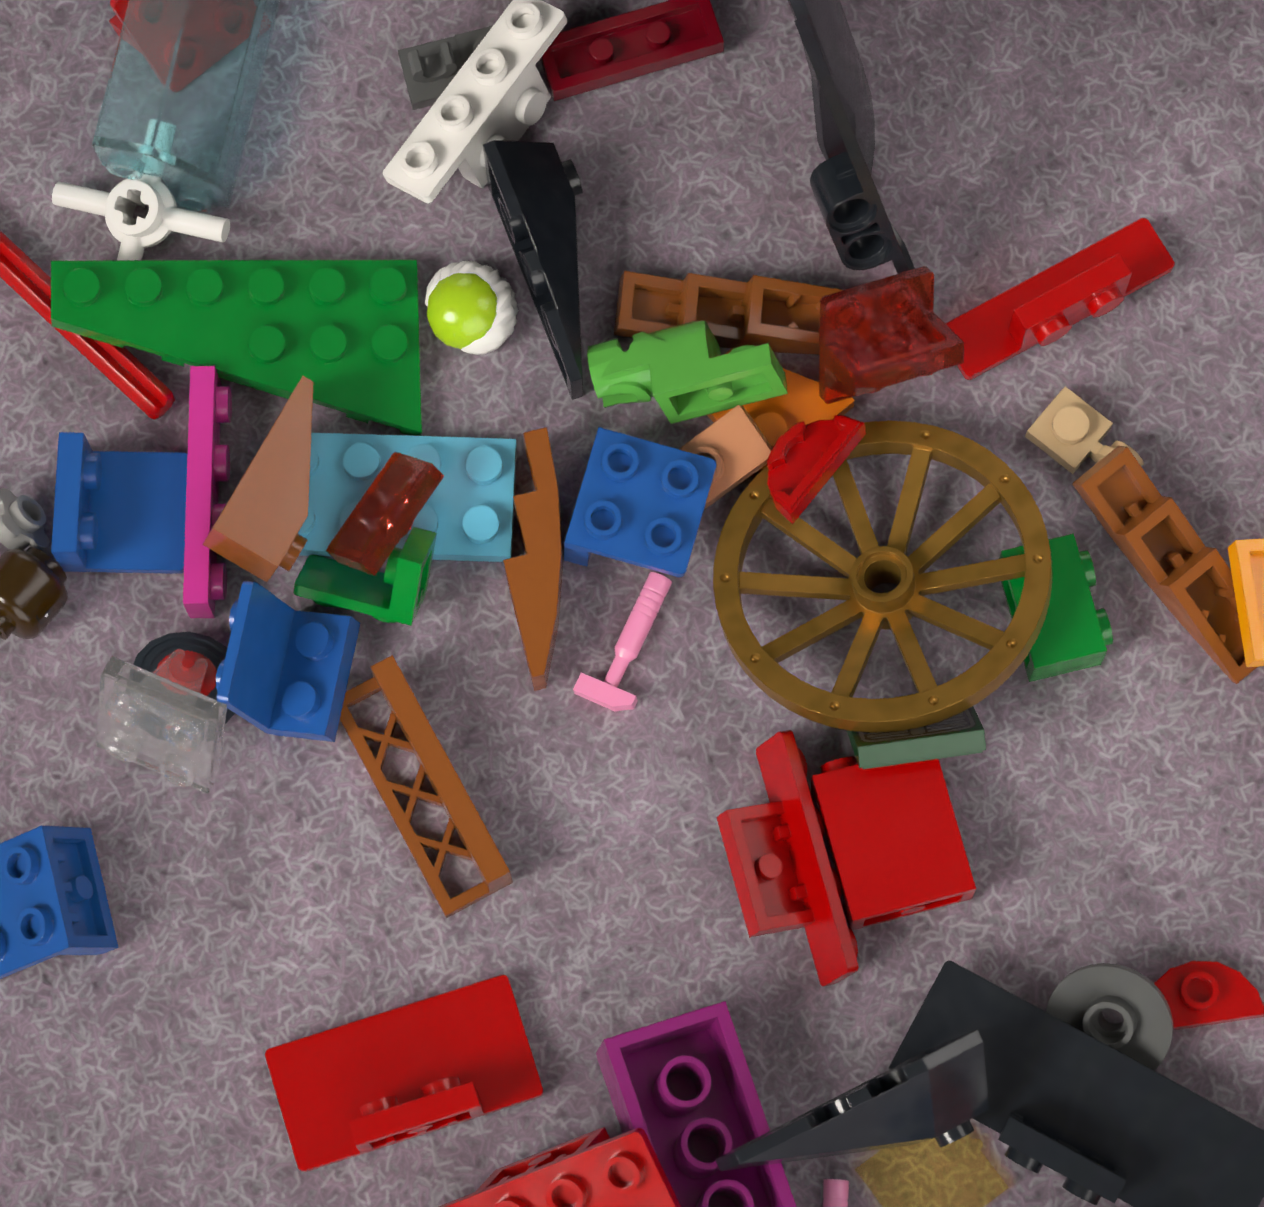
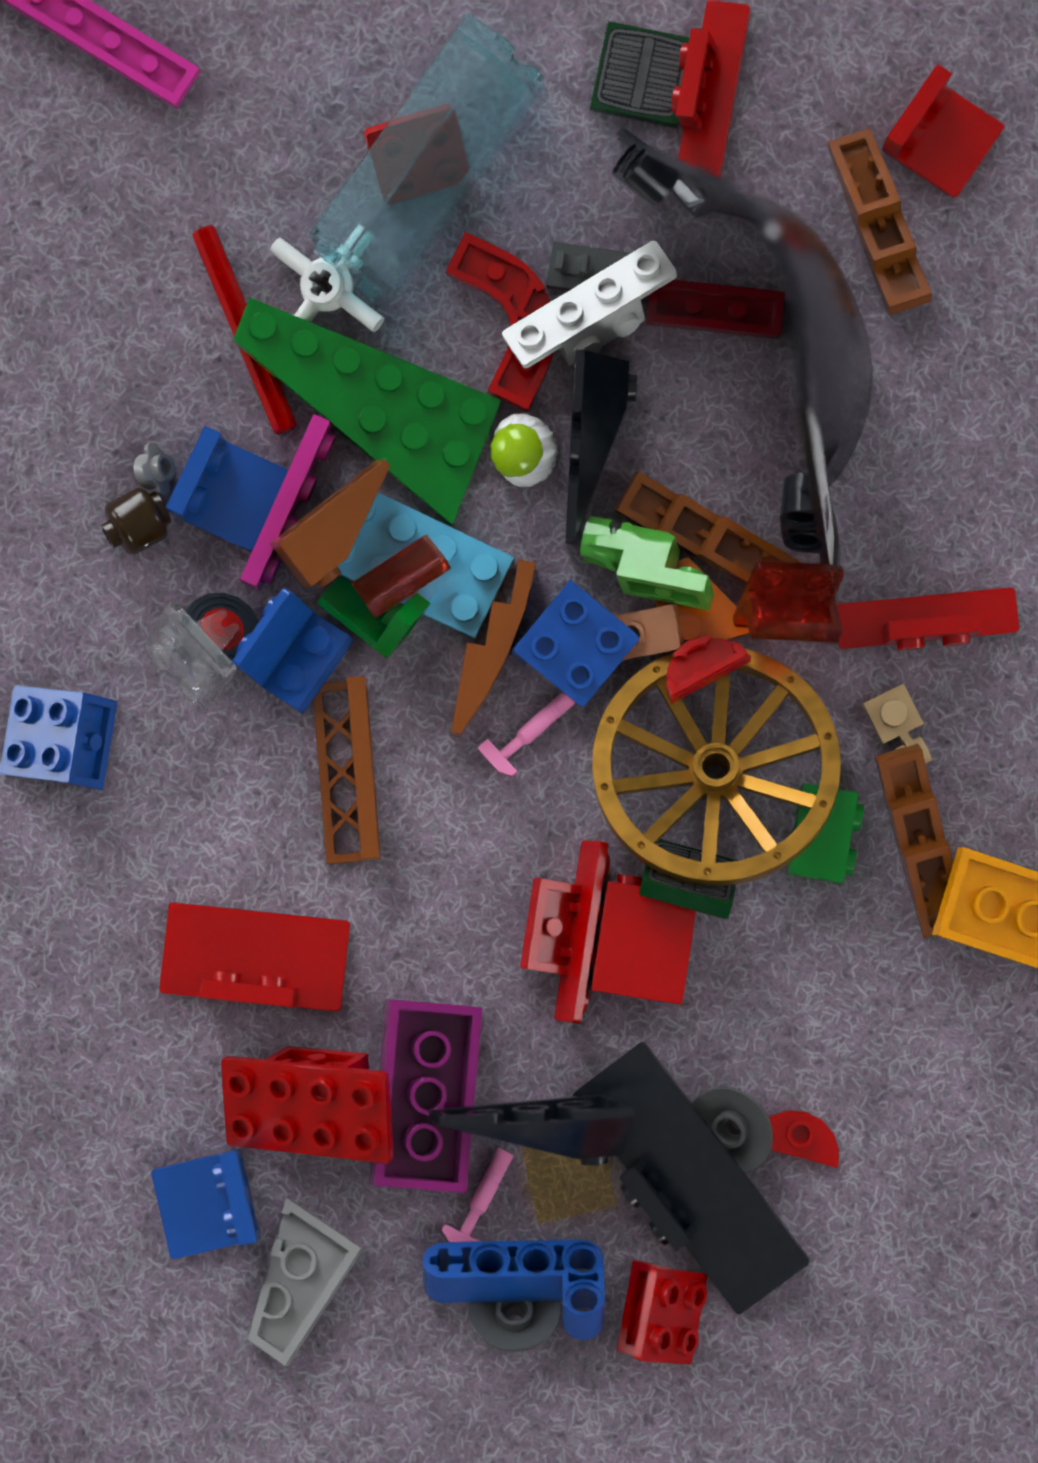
camera: 20 degrees right, 10 degrees up
(378, 124) = (519, 294): none -> red plate

